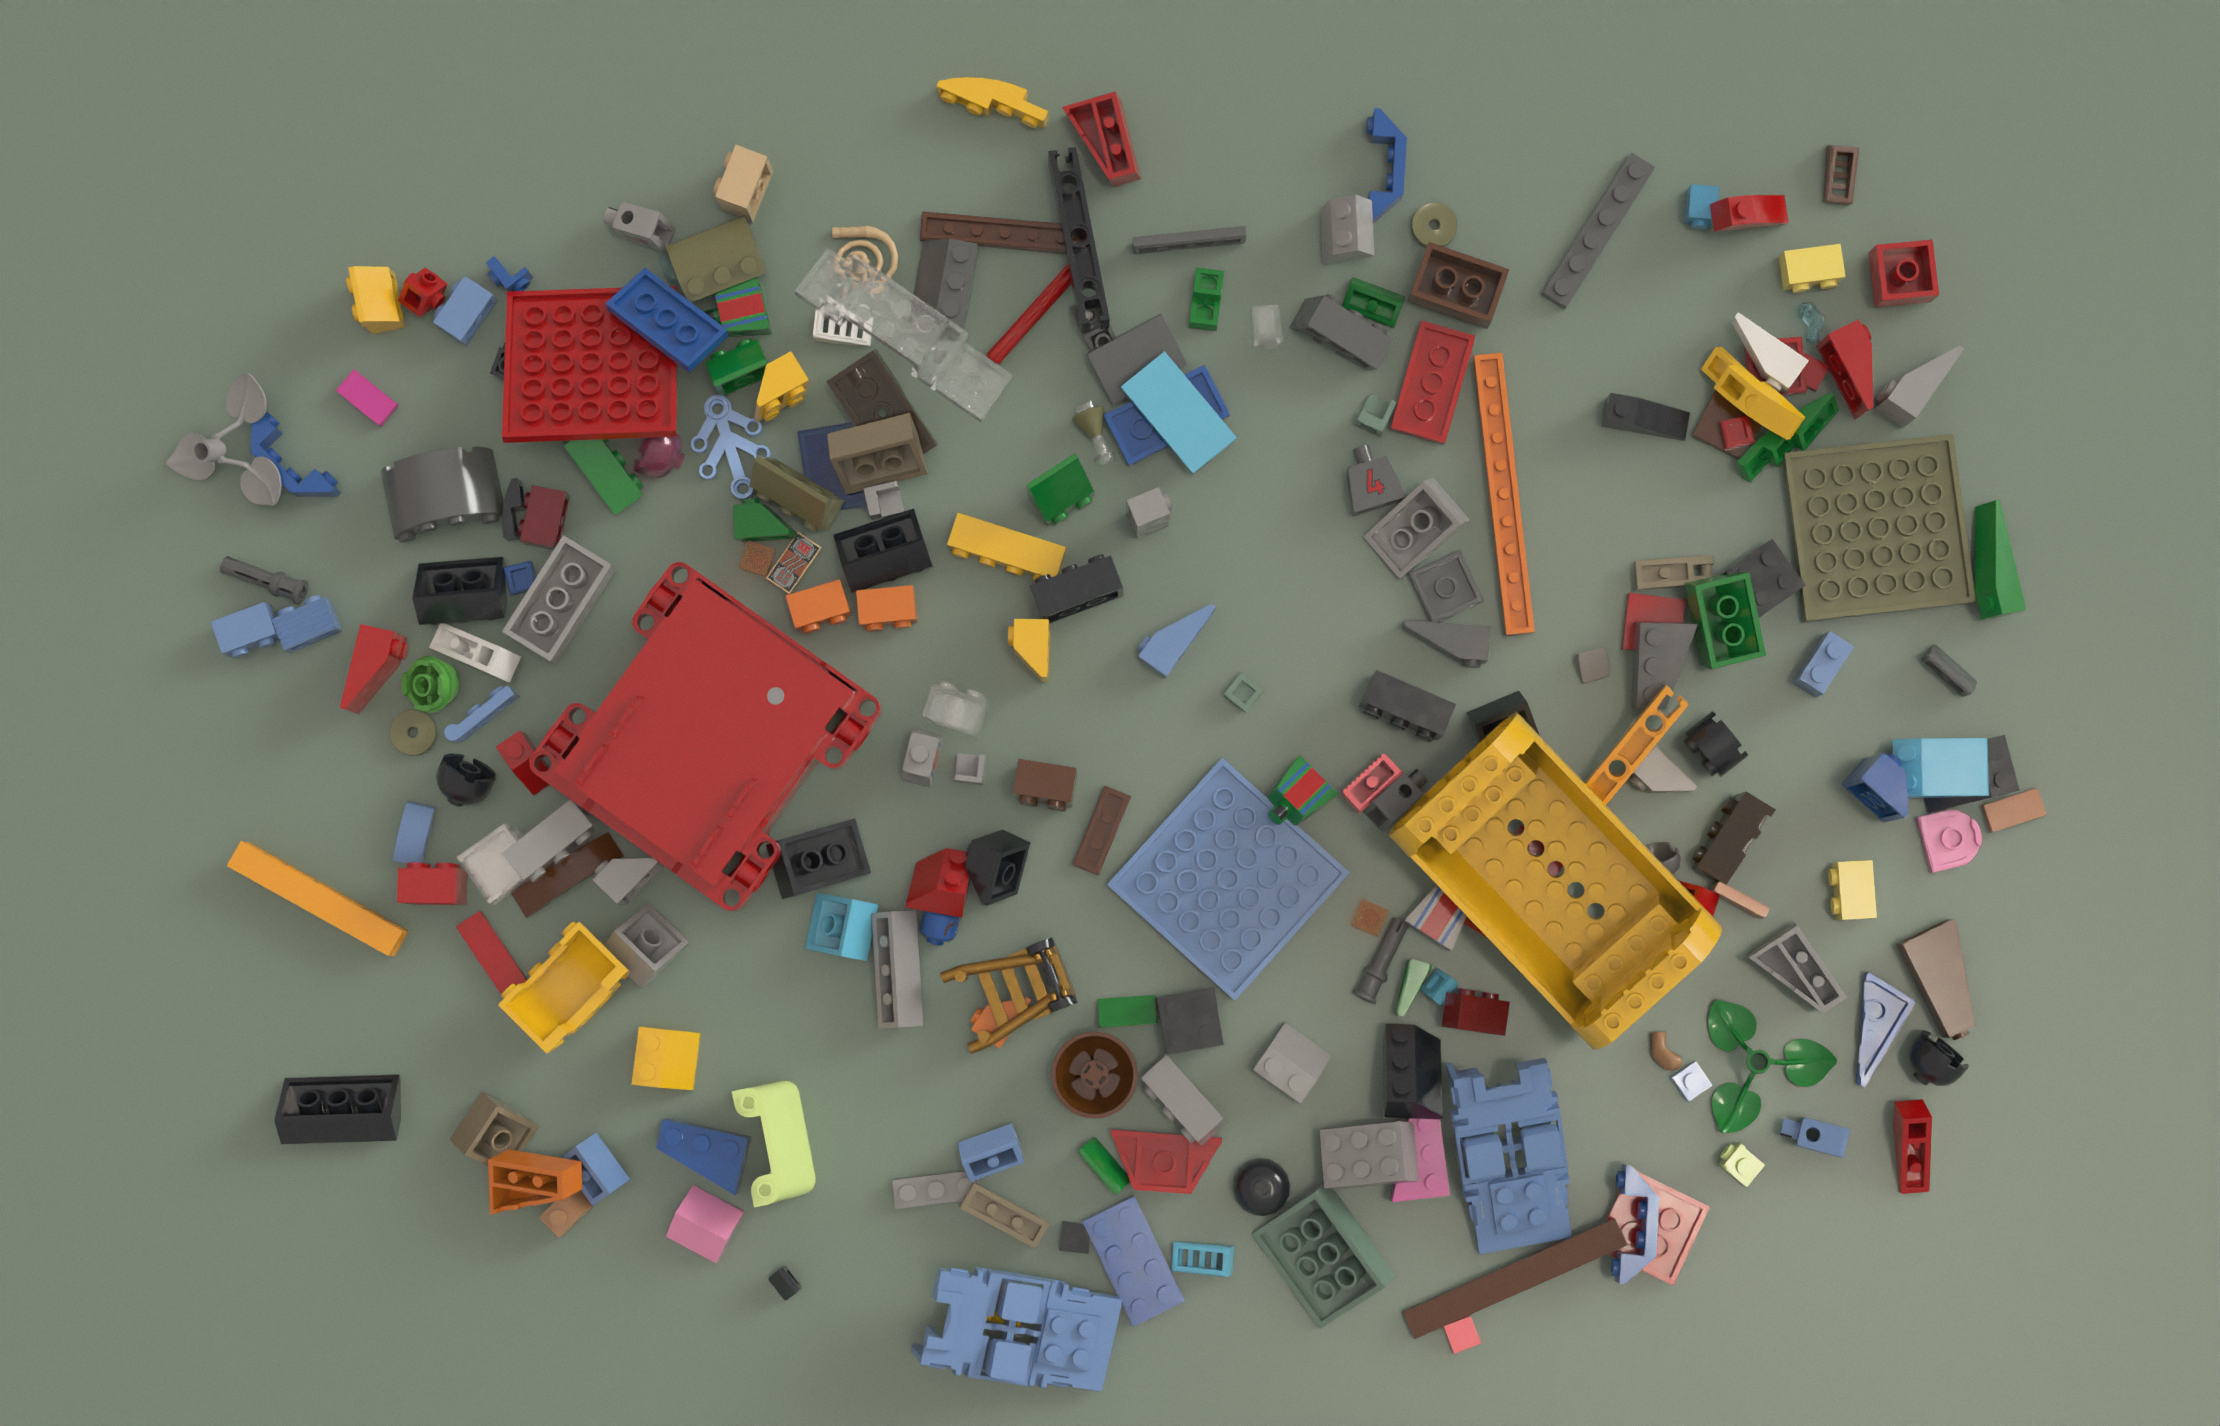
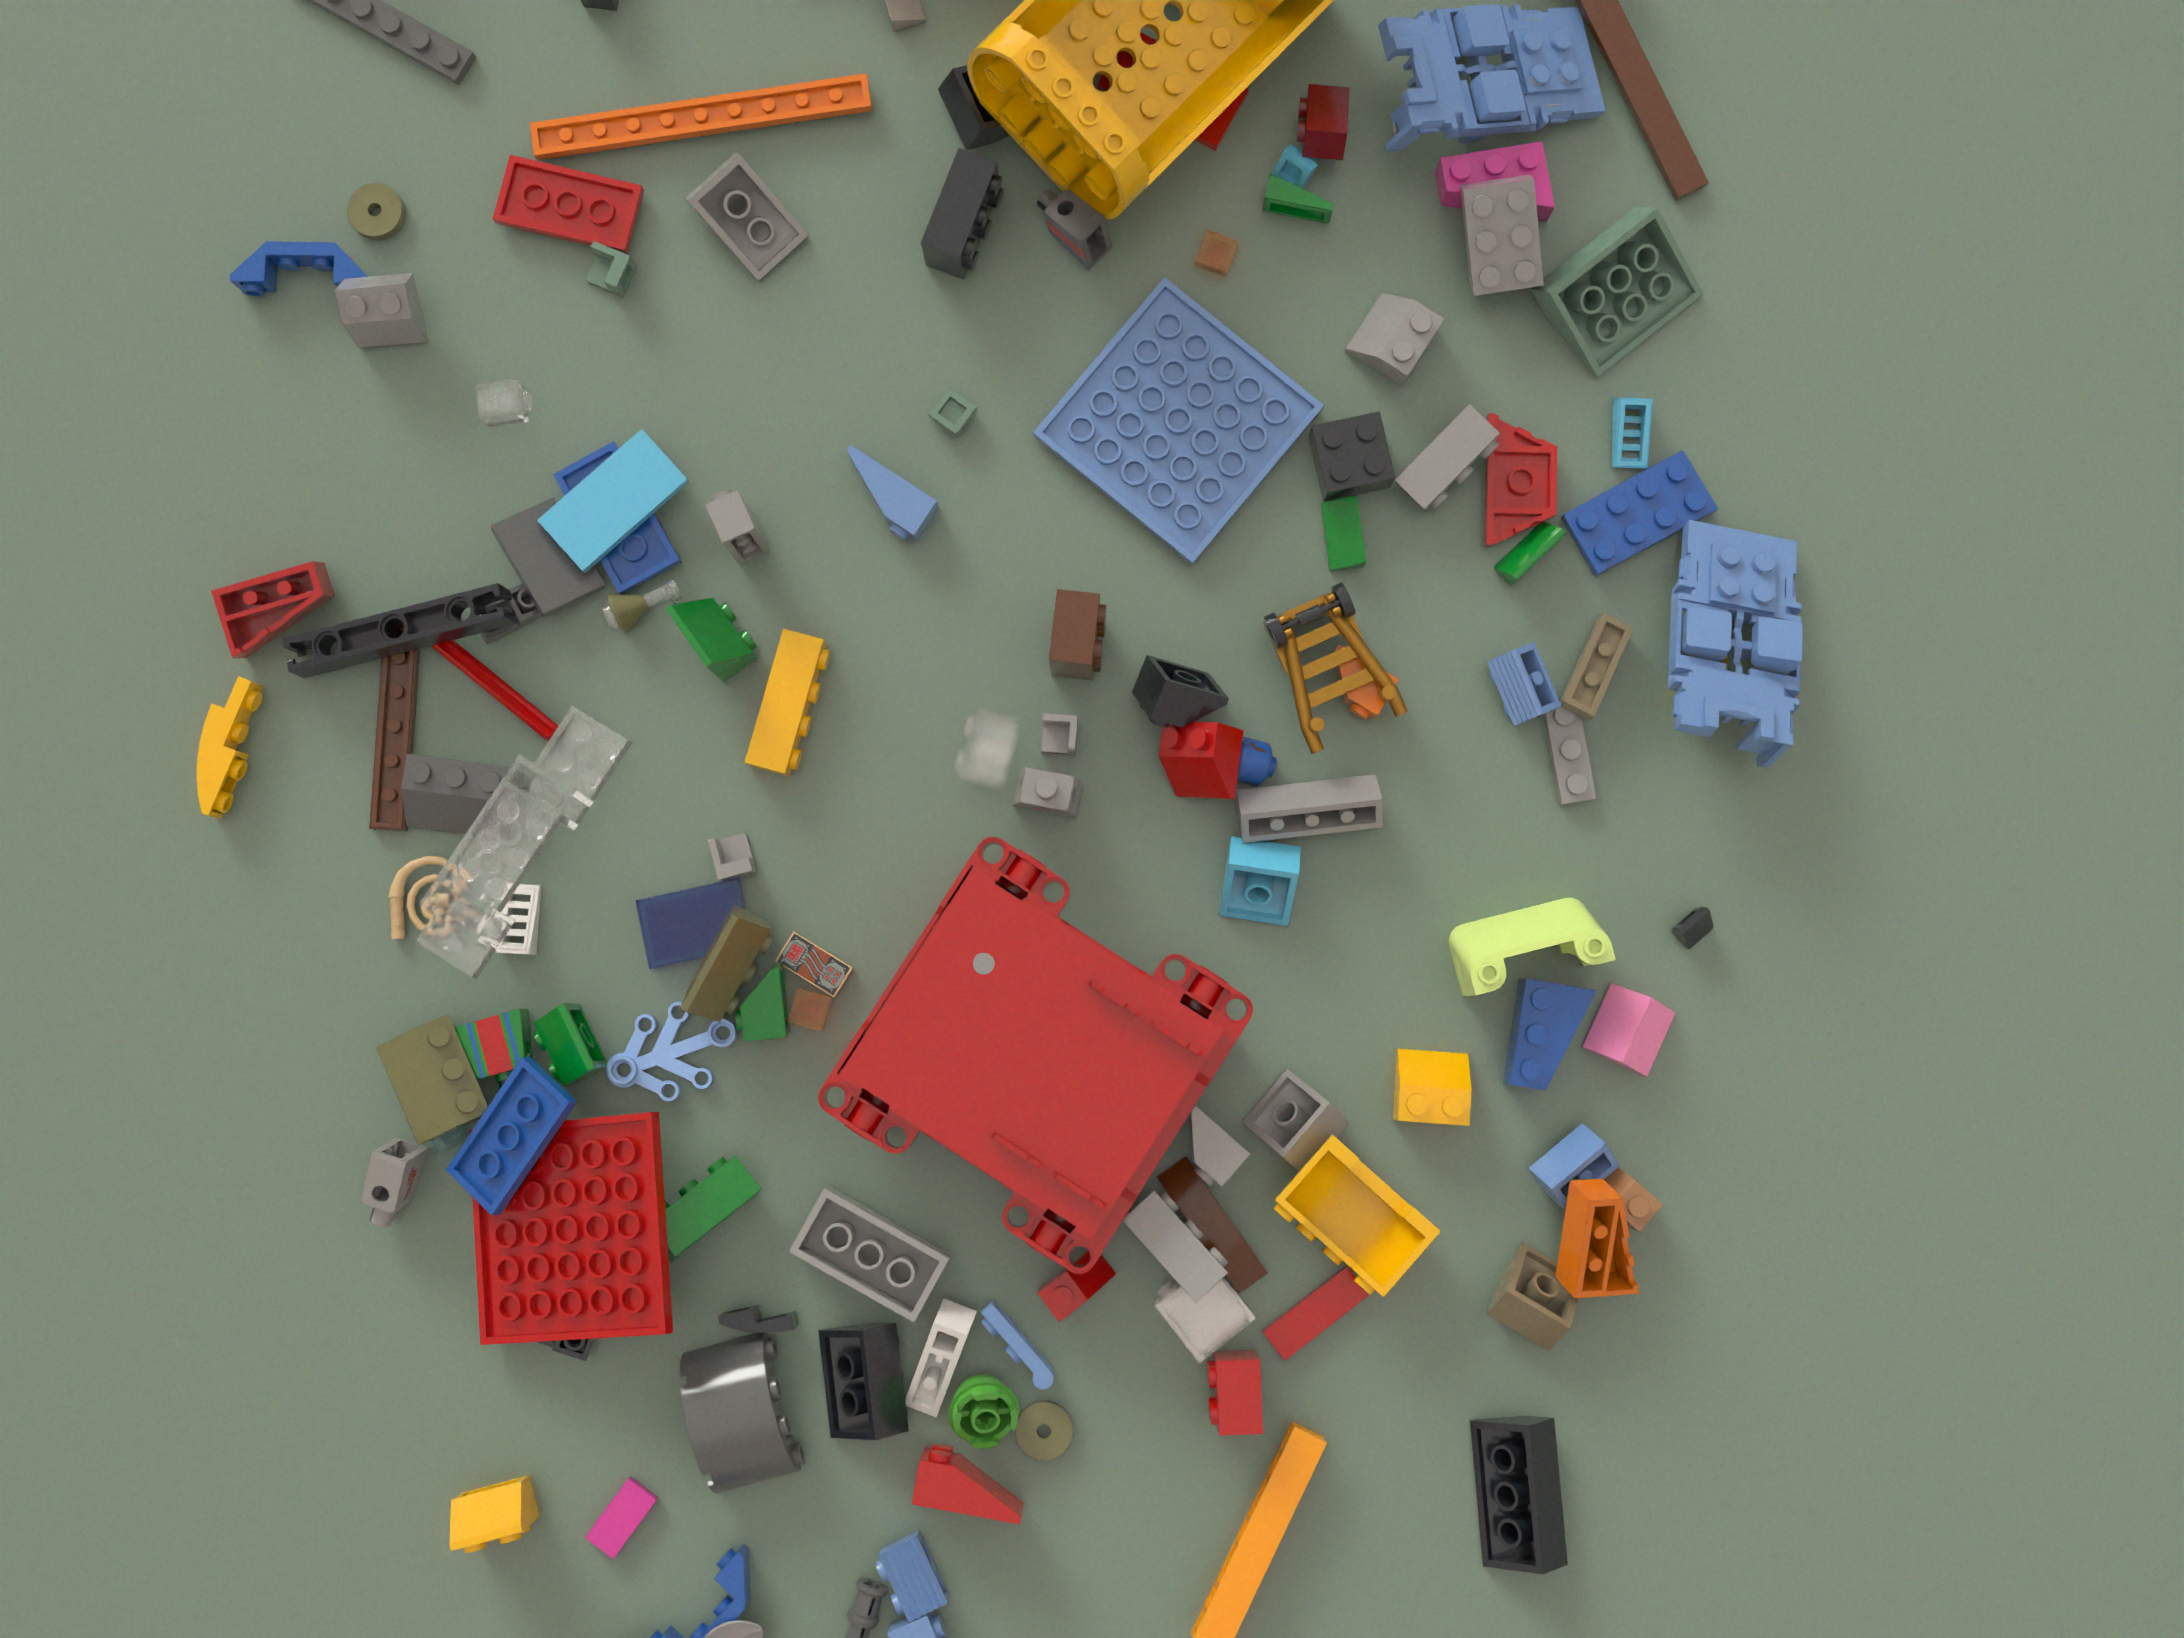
camera: 90 degrees left, 0 degrees up
(414, 833) = (1170, 1421): medium blue slope -> none
(422, 292) = (483, 1453): red brick -> none
(463, 781) = (1103, 1360): black cylinder -> none
(464, 310) = (505, 1398): medium blue brick -> none
(500, 276) = (460, 1355): blue bracket -> none
(520, 577) = (844, 1306): blue tile -> none
(543, 517) = (767, 1280): dark red brick -> none
(659, 456) = (685, 1138): clear pink cylinder -> none
(743, 182) = (333, 1050): tan brick -> none
(781, 386) = (592, 988): yellow slope -> none
(818, 606) = (866, 929): orange brick -> none
(819, 858) = (1179, 912): black slope -> none
(871, 386) = (593, 881): dark brown piece -> none
(877, 453) = (673, 863): dark tan slope -> none
(882, 550) = (794, 854): black slope -> none
(886, 607) = (865, 846): orange brick -> none
(1031, 644) = (907, 662): yellow slope -> none
(1074, 1238) = (1616, 584): black tile -> none
(1075, 1087) = (1441, 554): reddish brown piece -> none
(1077, 588) = (834, 611): black slope -> none
(1101, 830) = (1127, 574): reddish brown tile -> none
(1189, 240) = (398, 500): dark grey tile -> none
(1206, 299) = (472, 478): green slope -> none
(1261, 1187) = (1542, 367): black cylinder -> none
(1299, 794) = (1072, 338): torso -> none
(1343, 331) = (505, 310): dark grey wedge -> none
(1371, 783) = (1056, 254): coral brick -> none
(1372, 483) = (692, 270): dark grey torso -> none
(1373, 302) = (472, 279): green slope -> none
(1375, 973) = (1282, 243): dark grey pin -> none
(1411, 1073) = (1401, 193): black slope -> none
(1437, 918) = (1211, 172): torso -> none
(1445, 587) = (816, 181): dark grey tile -> none
(1457, 641) = (881, 166): dark grey slope -> none
(1458, 285) = (448, 175): reddish brown brick -> none
(1462, 1334) = (1700, 129): coral tile -> none

